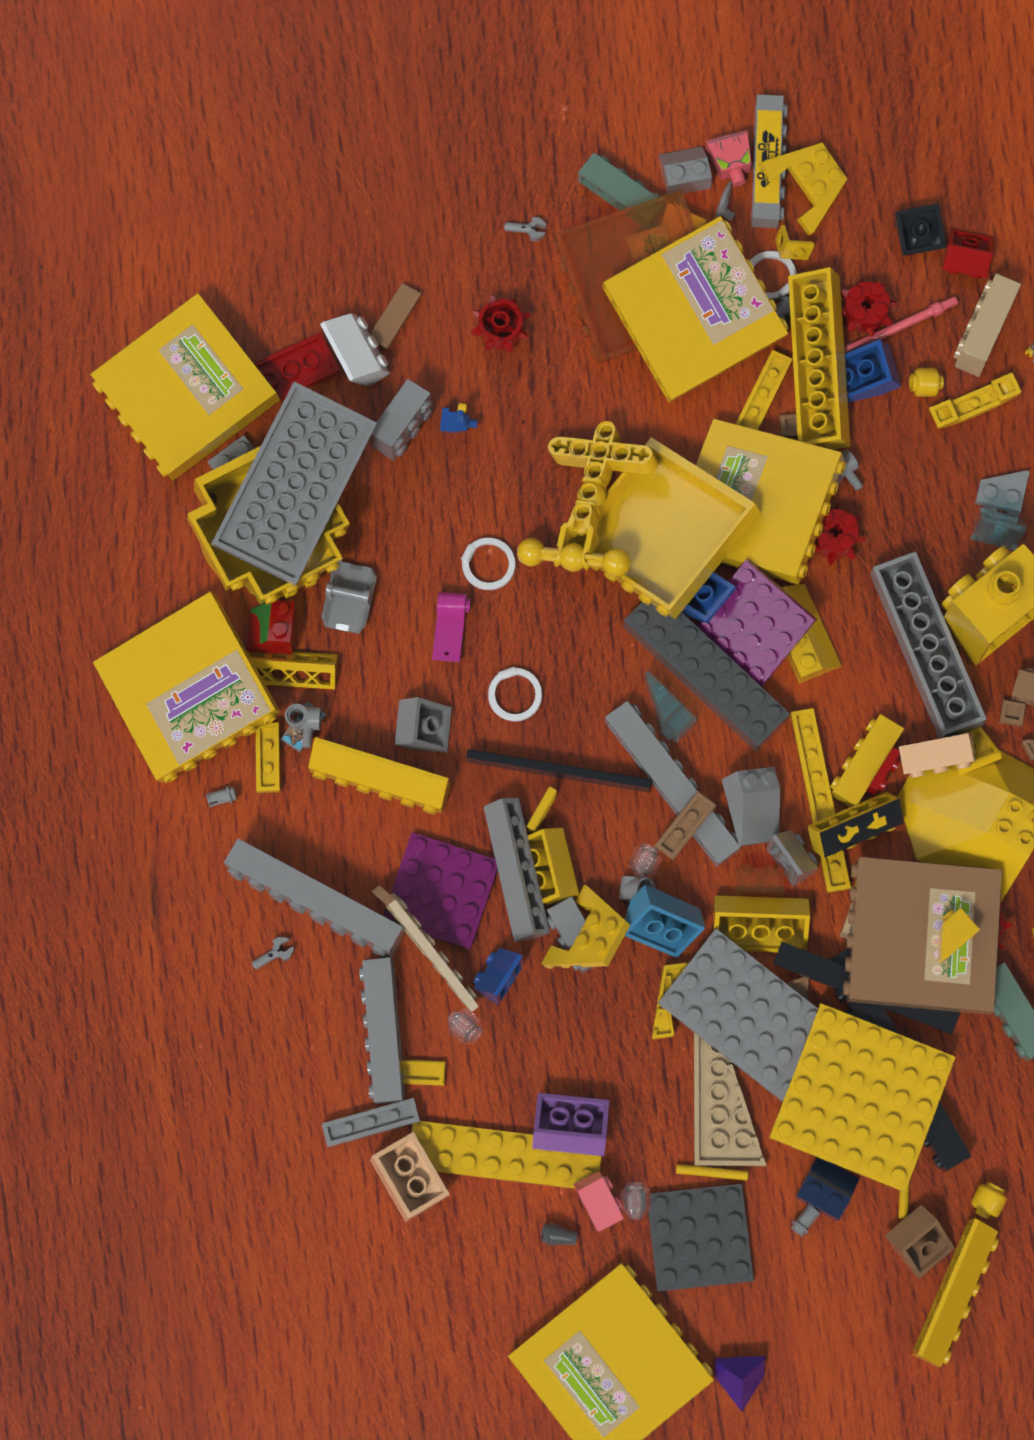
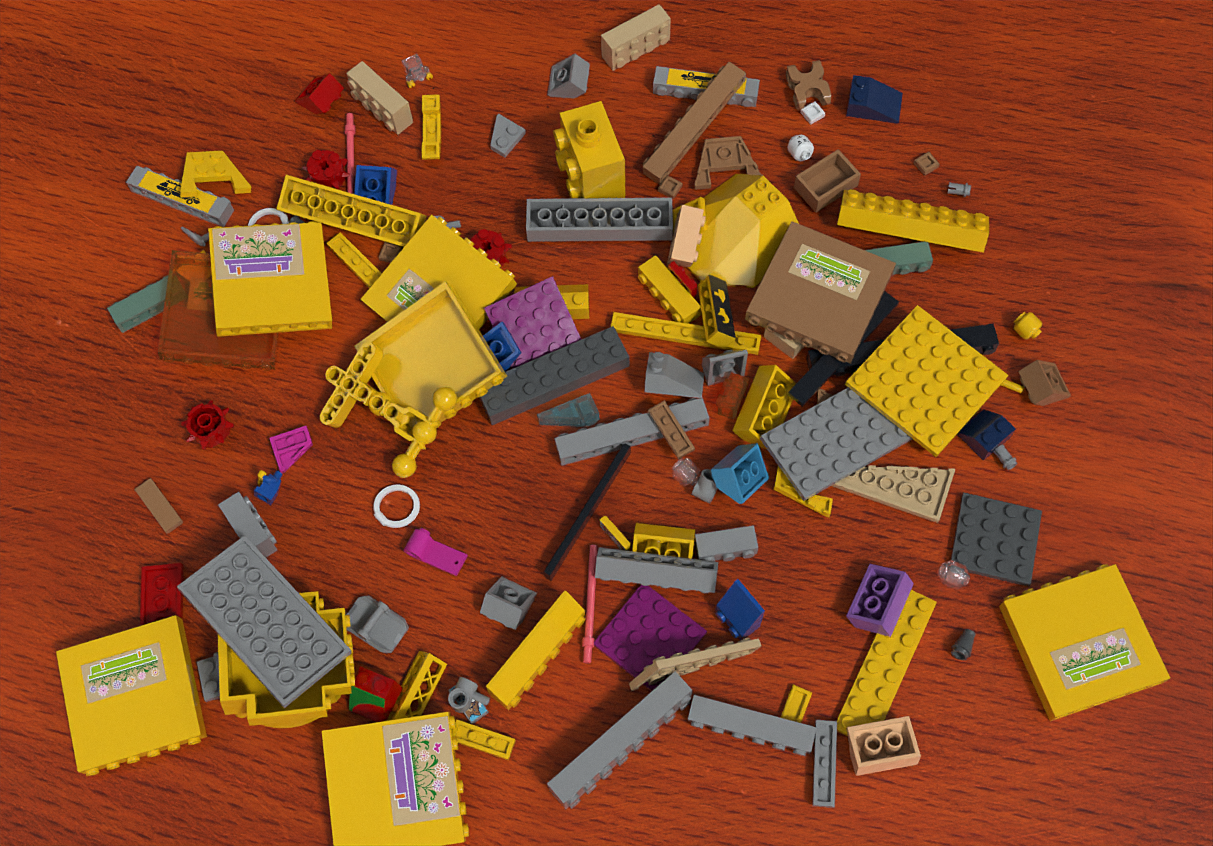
camera: 70 degrees left, 10 degrees down
(221, 796) = (500, 791): light grey pin -> none
(271, 955) = (652, 795): light grey bar -> none
(356, 349) = (171, 540): white slope -> none
(413, 826) = (588, 640): none -> coral bar
(465, 1026) = (770, 657): clear head -> none
(507, 673) = (511, 542): white piece -> none
(511, 422) = (290, 446): none -> dark pink wing
(528, 228) = (140, 380): light grey bar -> none
(597, 938) = (739, 523): yellow wing -> none
(598, 1200) = (947, 601): coral brick -> none
(685, 170) = (156, 253): light grey slope -> none
(711, 1172) = (946, 512): yellow bar -> none
(730, 156) = (163, 219): coral torso -> none
(740, 1377) = (1114, 547): dark purple slope -> none
(792, 249) = (255, 203): yellow bracket -> none
(920, 229) = (285, 116): black slope -> none
(925, 382) = (401, 153): yellow head -> none
(954, 933) = (831, 265): yellow slope -> none
(955, 1292) = (1090, 373): yellow slope -> none
(998, 528) = (533, 143): clear light blue slope -> none

